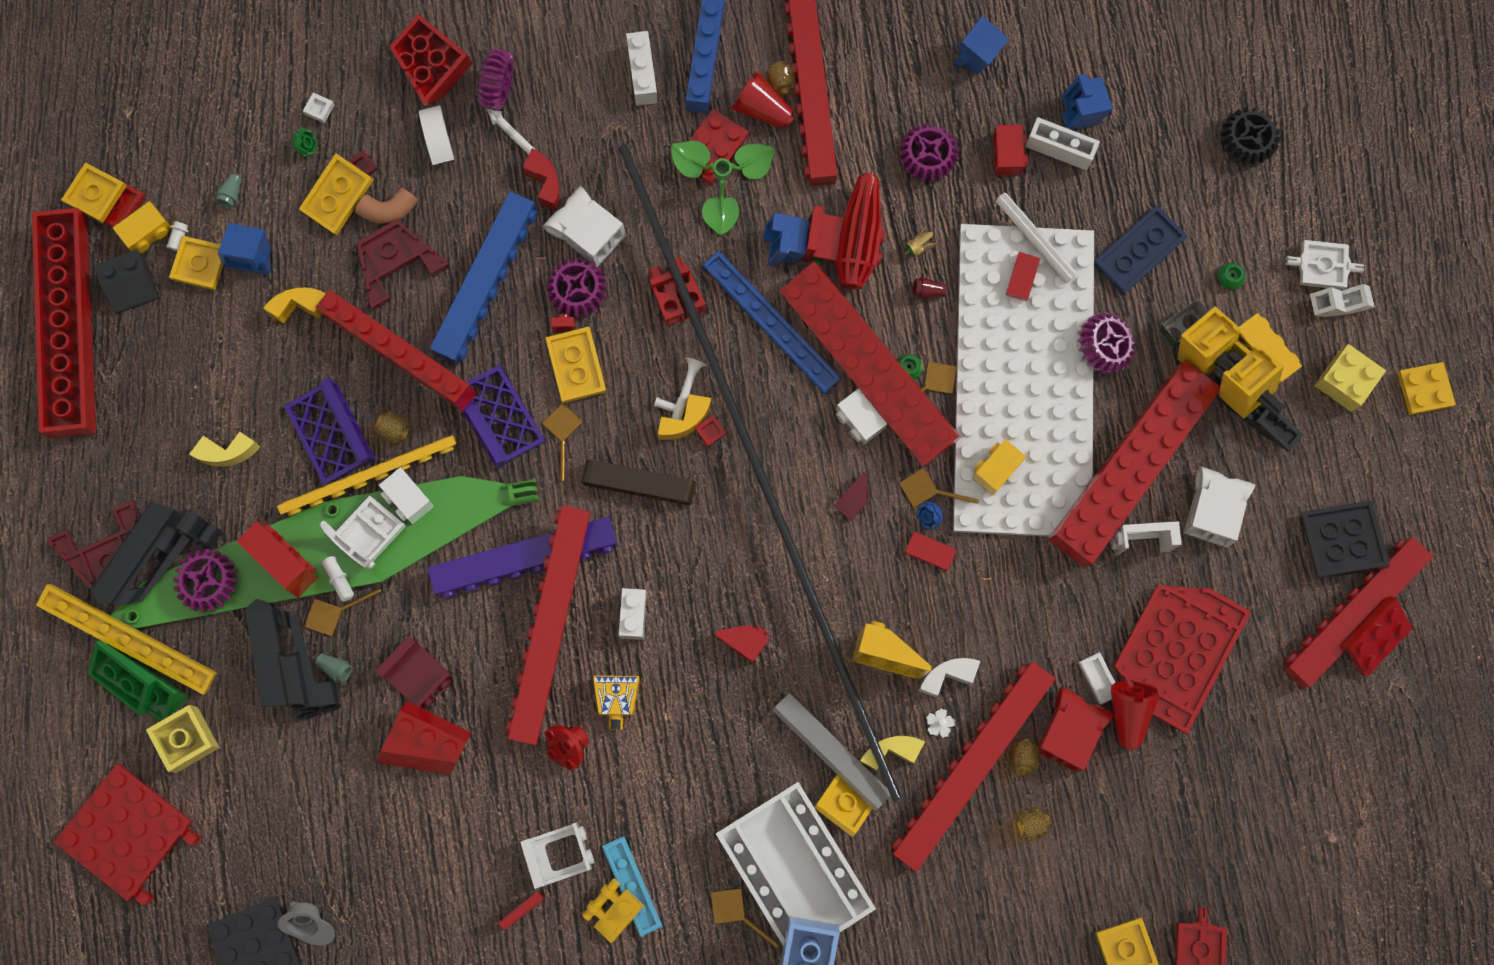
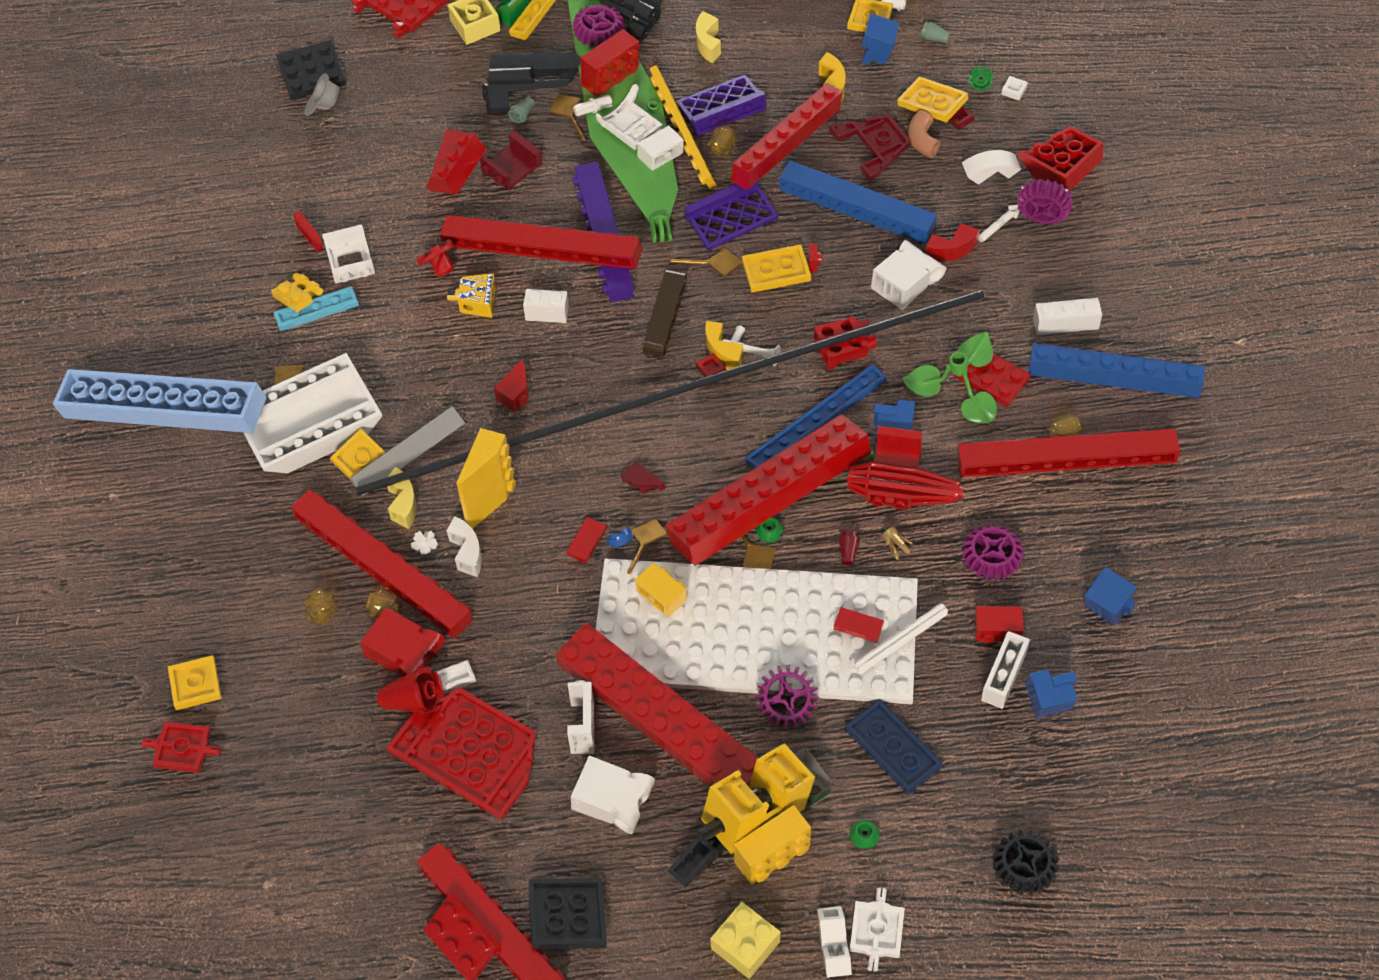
camera: 100 degrees right, 20 degrees down
(585, 271) = (848, 261): magenta gear -> none
(763, 103) = (1037, 408): red cone -> none
(860, 417) = (716, 479): white brick -> none

